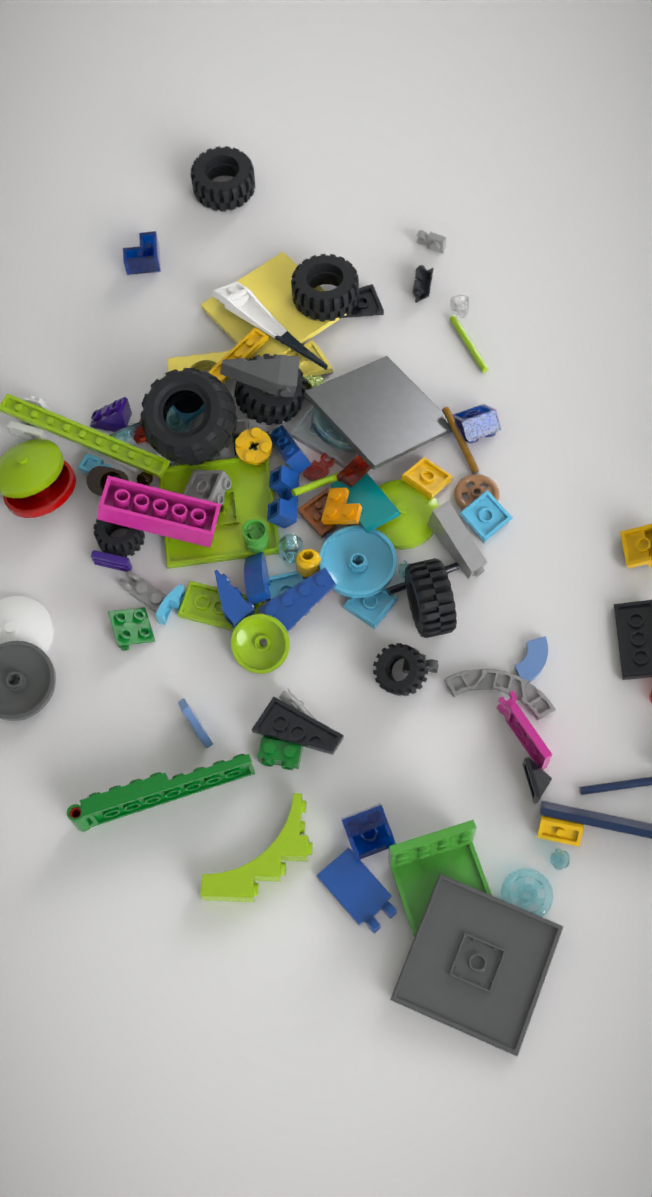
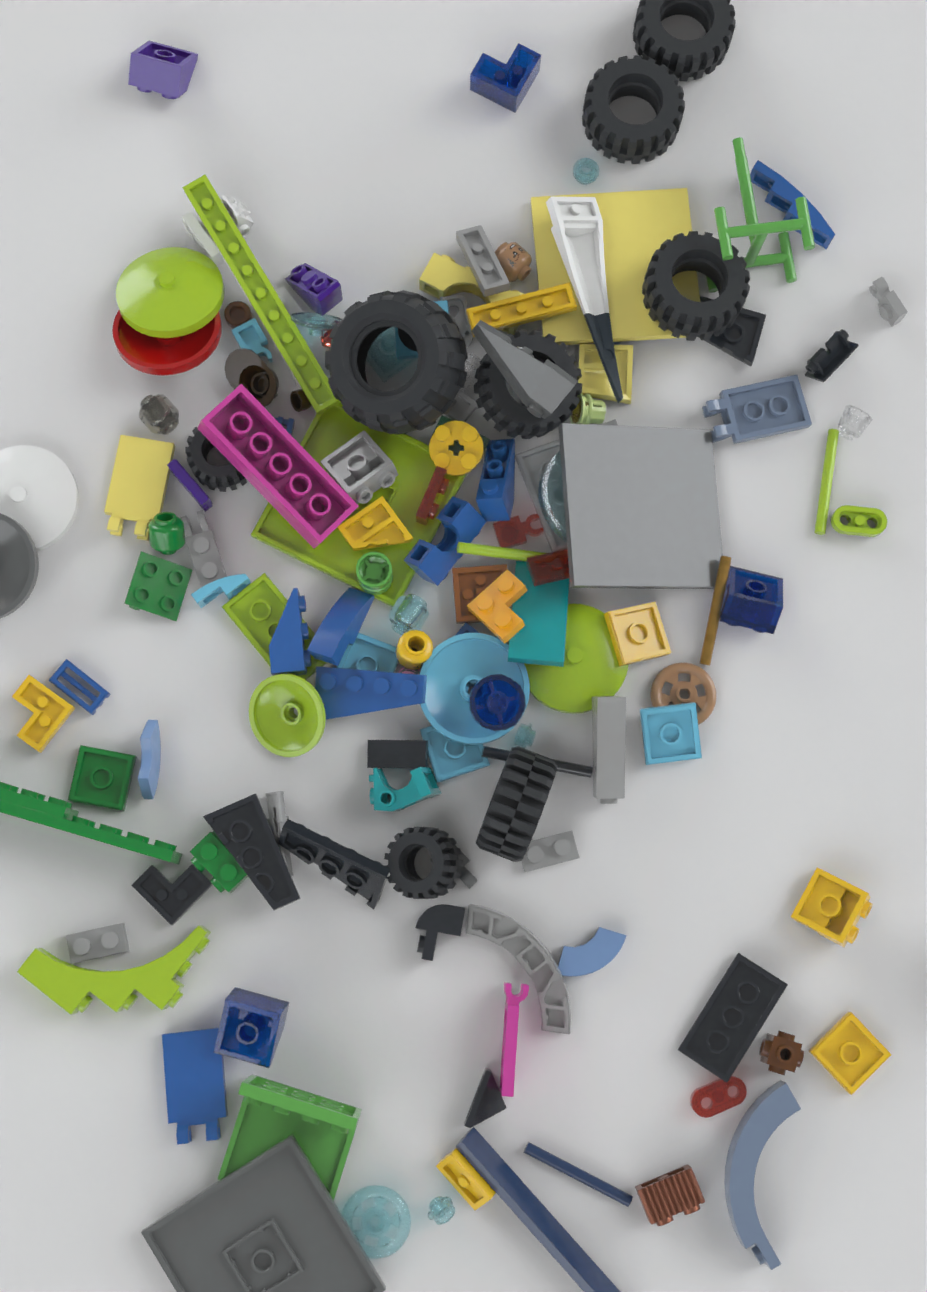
camera: 25 degrees right, 15 degrees up
(66, 535) = (159, 414): none -> clear smoke head
(74, 458) = (237, 314): none -> reddish brown tile
(79, 581) = (138, 483): none -> light yellow tile
(113, 739) = (48, 713): none -> yellow plate
(116, 593) = (166, 533): none -> green head
(127, 721) = (97, 701): none -> blue tile
(173, 754) = (102, 778): none -> green tile
(198, 346) = (482, 261): none -> light grey hinge
(214, 339) = (514, 261): none -> medium nougat head
(221, 276) = (583, 177): none -> clear light blue plate
(225, 214) = (637, 79): none -> black tyre
(236, 514) = (374, 527): none -> yellow wing
(238, 850) = (97, 943): none -> light grey plate
(257, 471) = (437, 486): none -> clear red plate
(263, 794) = (172, 899): none -> black plate
(340, 234) = (758, 231): none -> bright green piece
(340, 625) = (397, 753): none -> black slope
(342, 225) = (783, 196): none -> blue slope
(361, 700) = (337, 861): none -> black wing
(368, 633) = (421, 787): none -> teal tile
(377, 554) = (496, 702): none -> clear blue cylinder
(405, 331) = (759, 410): none -> sand blue tile
(433, 698) = (441, 919): none -> black brick
(467, 621) = (550, 851): none -> light grey plate
(500, 350) = (857, 521): none -> lime plate

